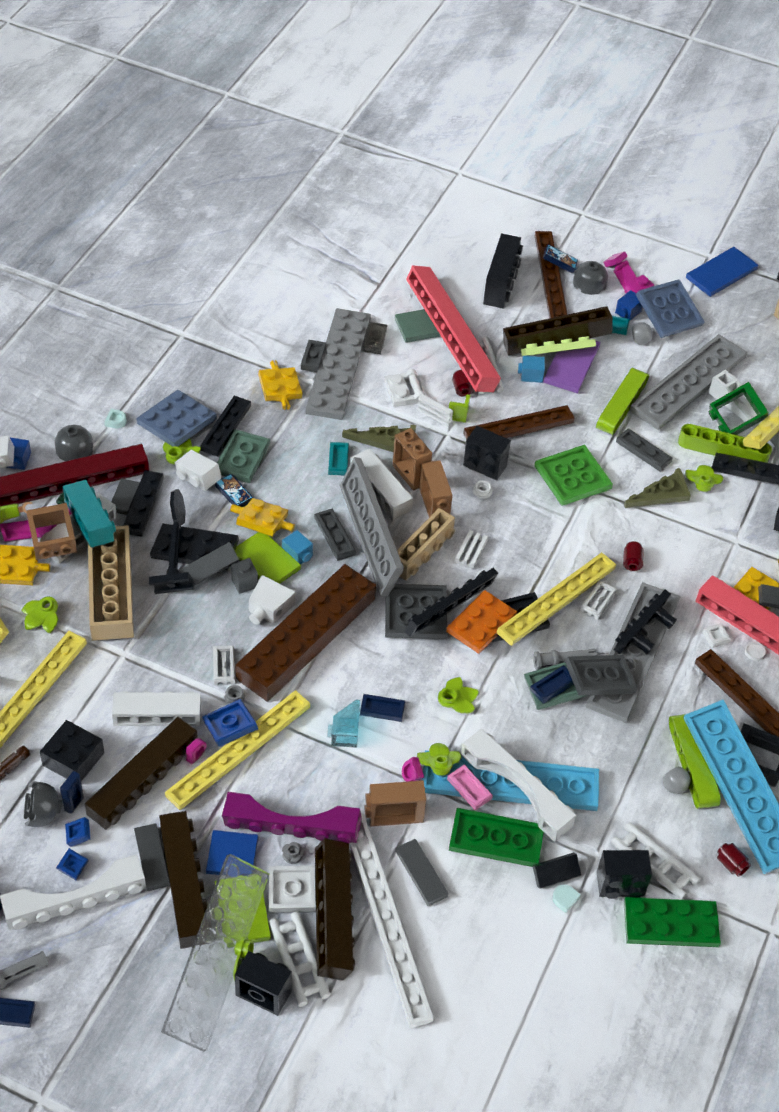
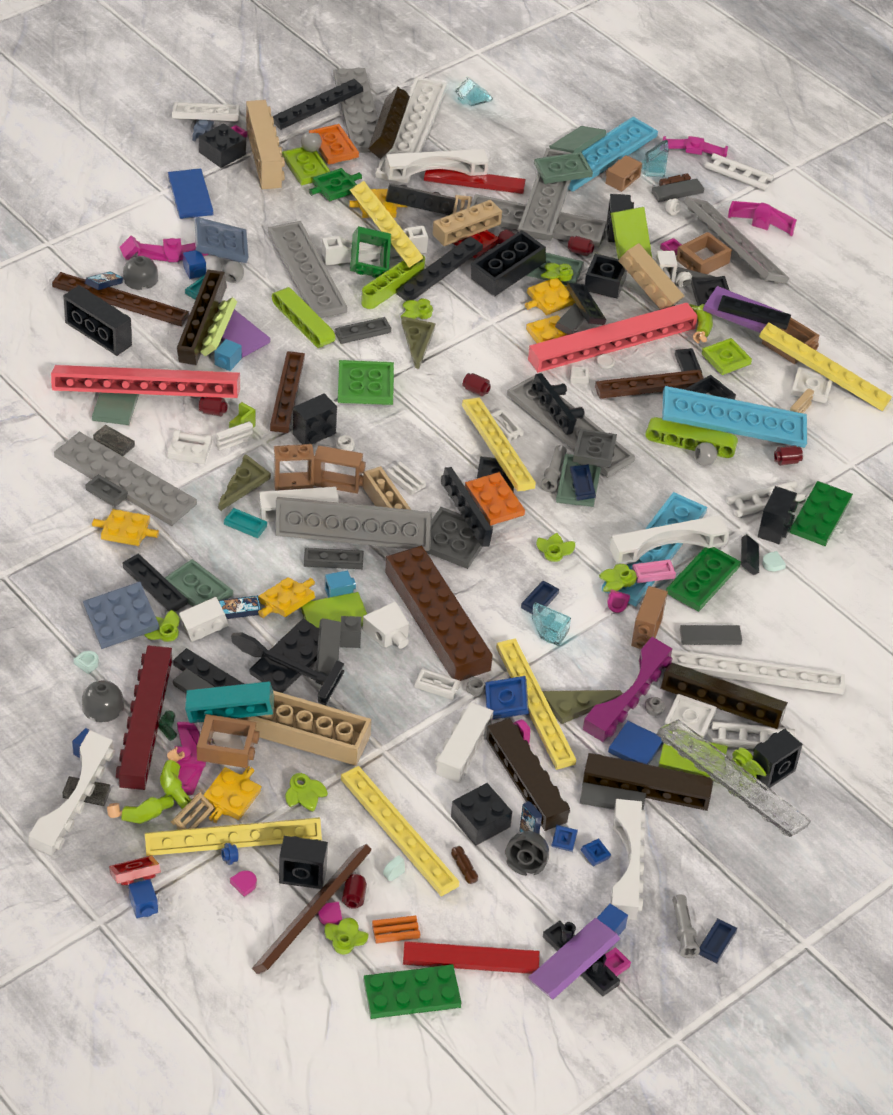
camera: 65 degrees left, 5 degrees down
(257, 780) = (573, 704): none -> olive wing

